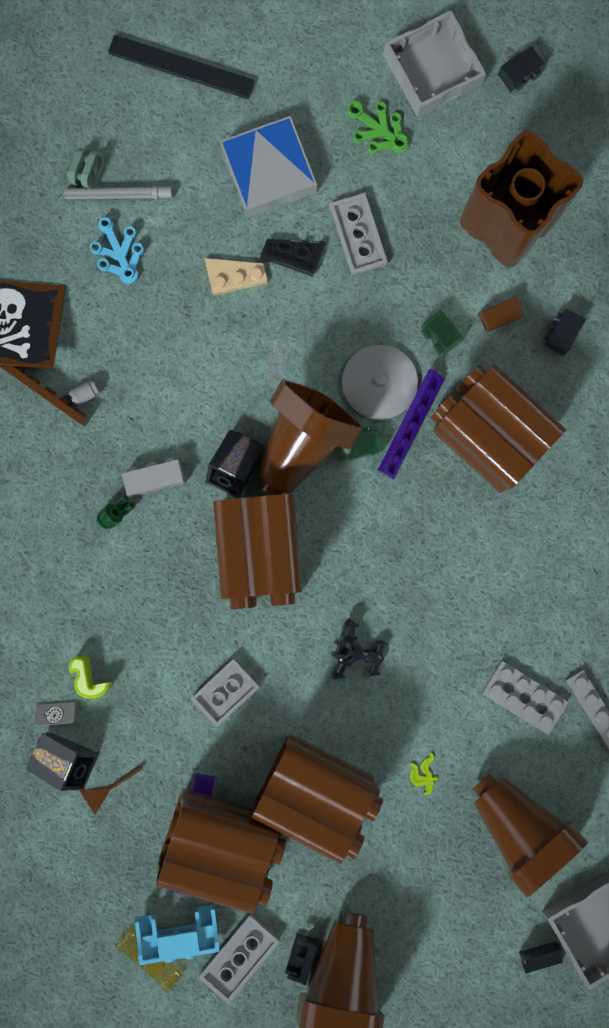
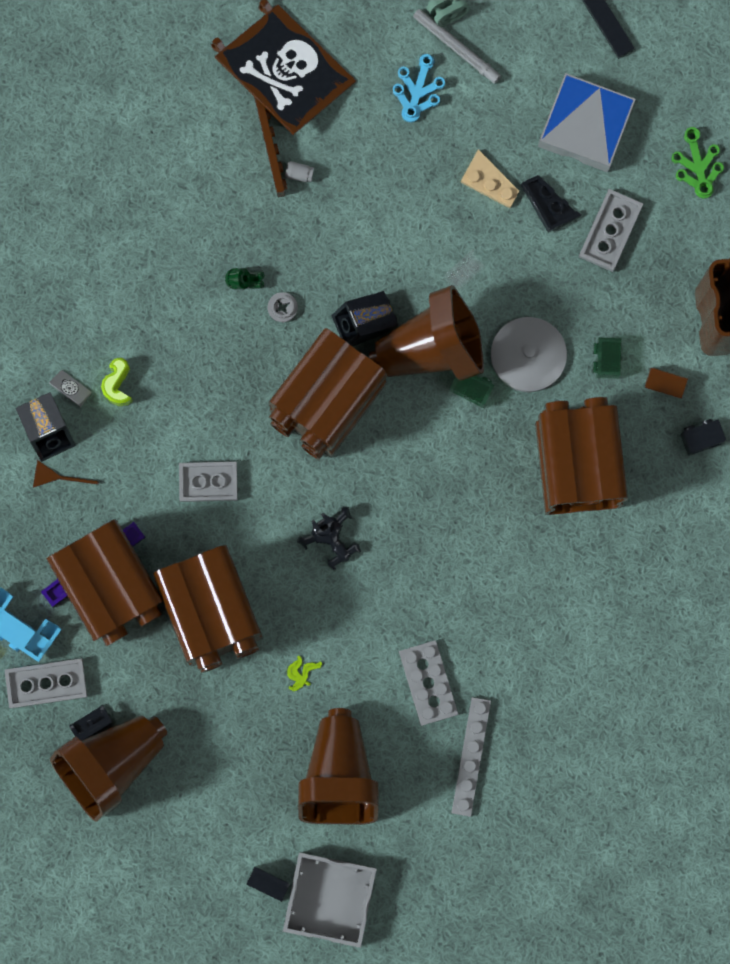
camera: 40 degrees right, 5 degrees down
(153, 477) = (295, 278): light grey brick -> none
(155, 513) = (283, 298): none -> light grey gear
(411, 424) = (523, 405): dark purple plate -> none

